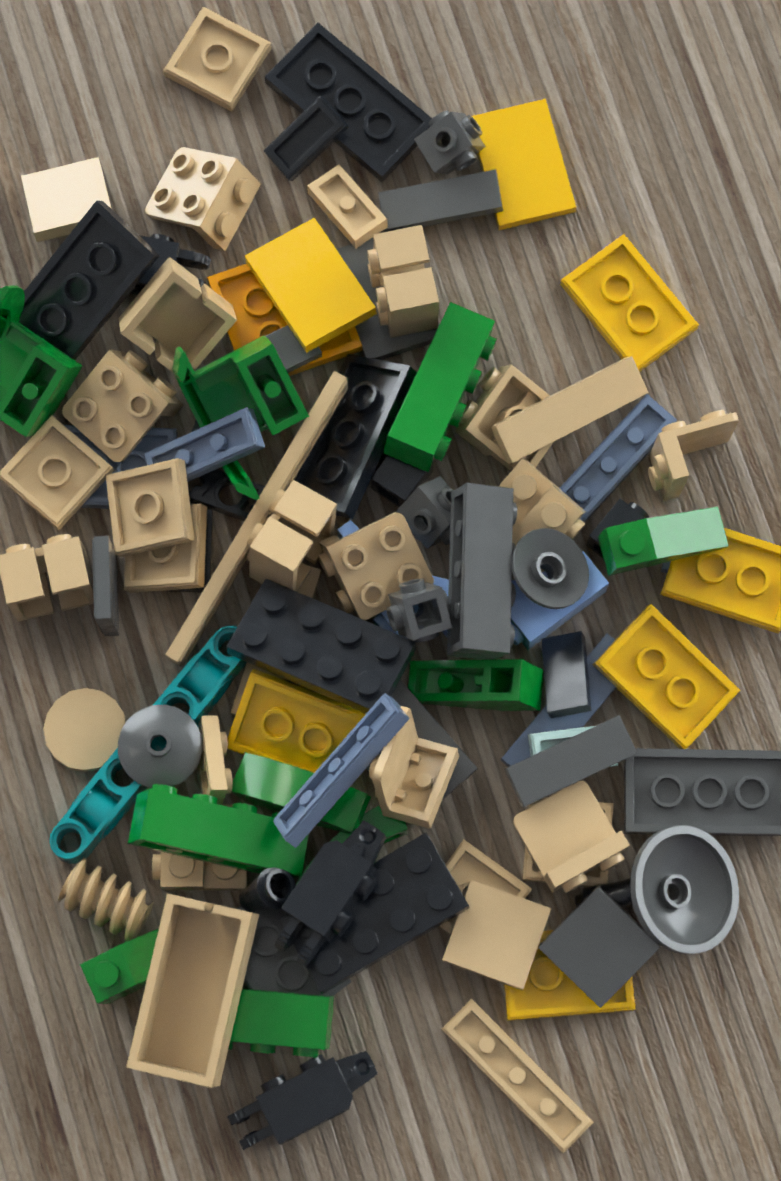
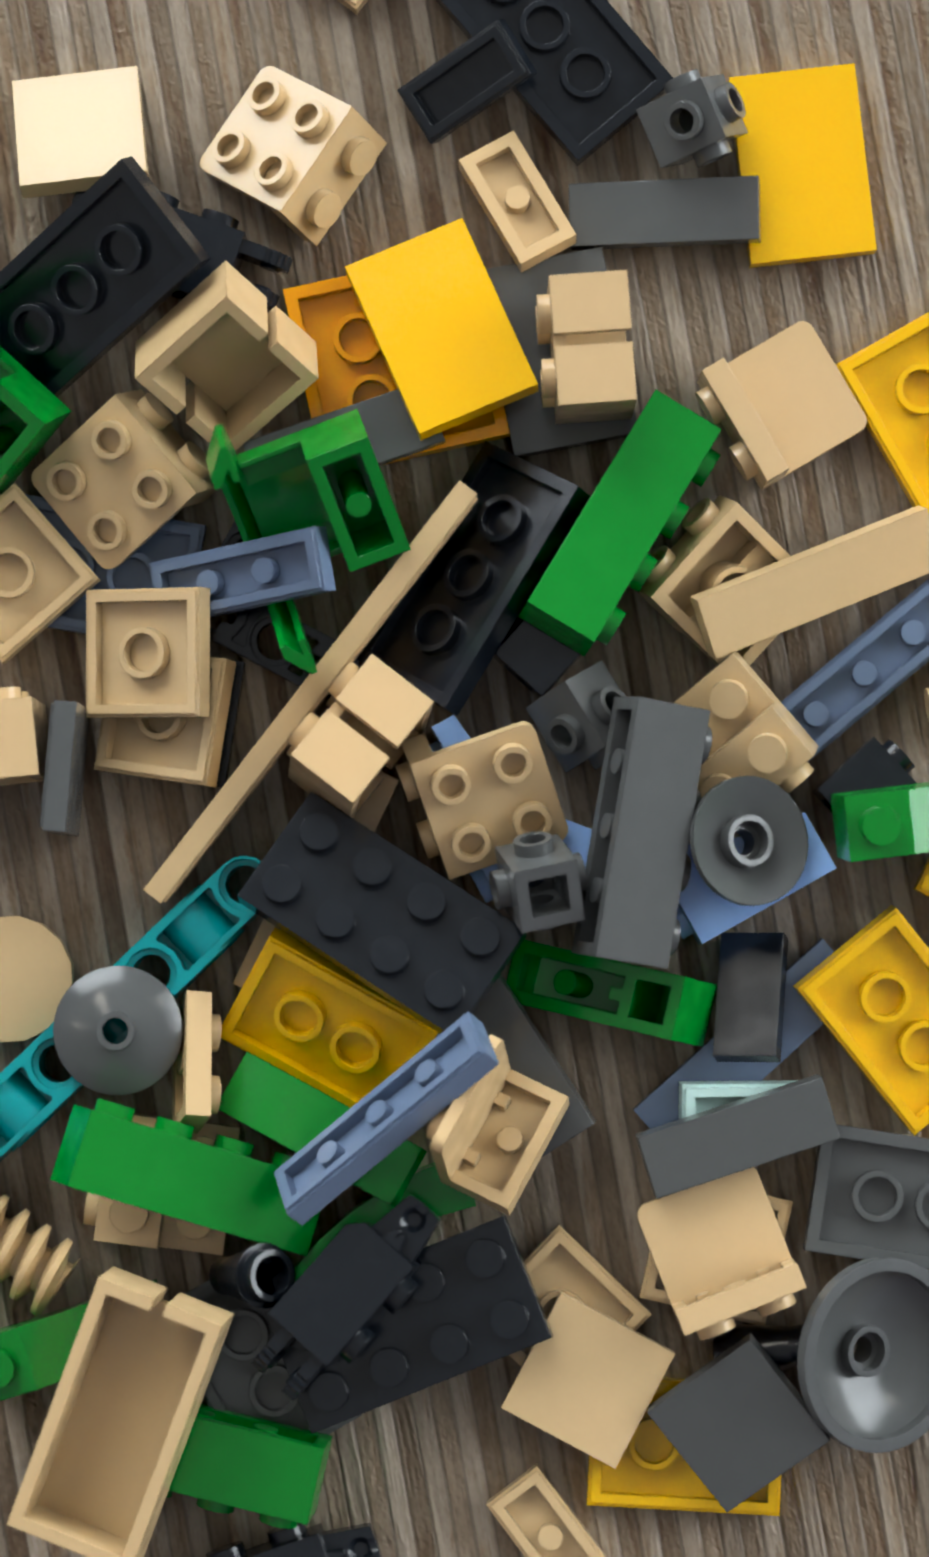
camera: 10 degrees right, 10 degrees up
(530, 307) = (780, 404): none -> tan bracket

